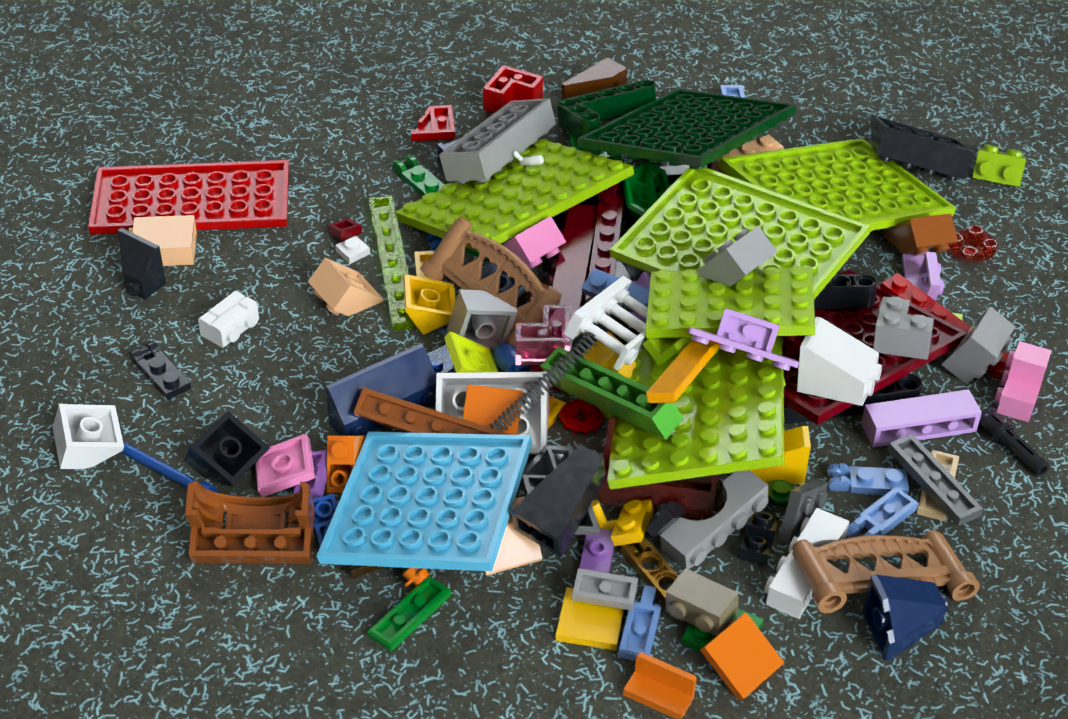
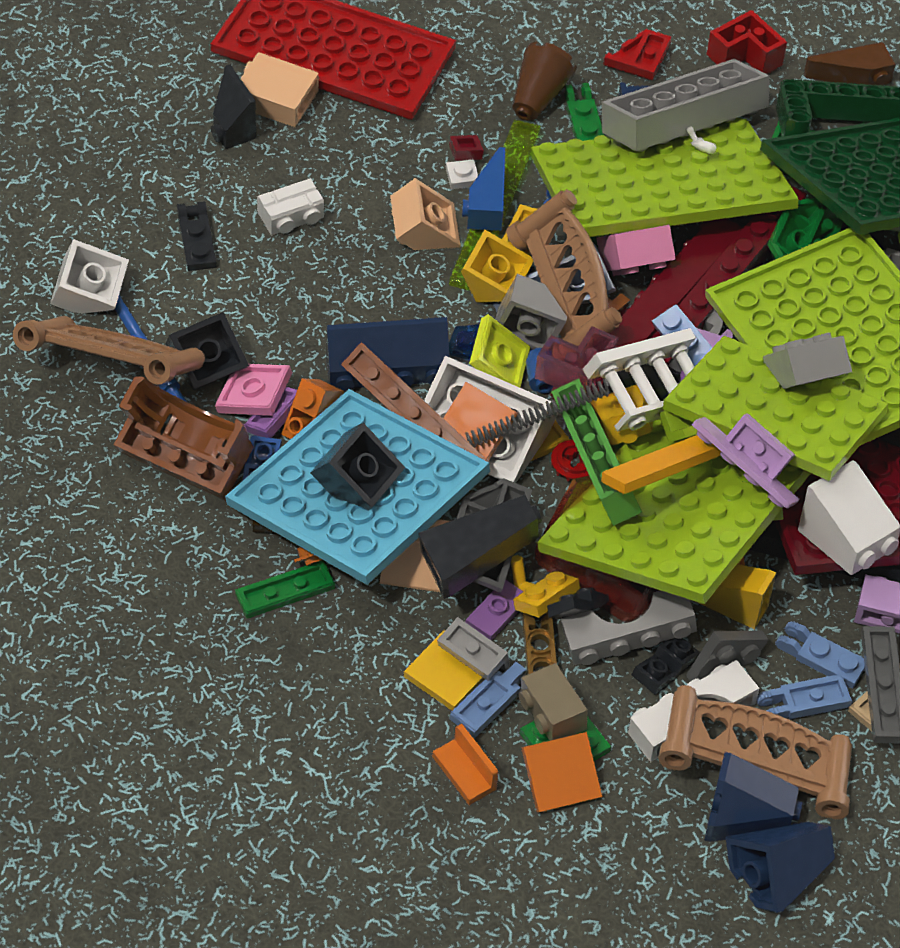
camera: 25 degrees right, 10 degrees up
(202, 468) = (158, 360): none -> medium nougat piece
(374, 160) = (541, 78): none -> reddish brown cone
(389, 255) = (487, 196): none -> blue slope
(424, 482) = (358, 468): none -> black slope
(779, 492) = (720, 622): green plate -> none
(959, 648) = (780, 861): none -> dark blue slope

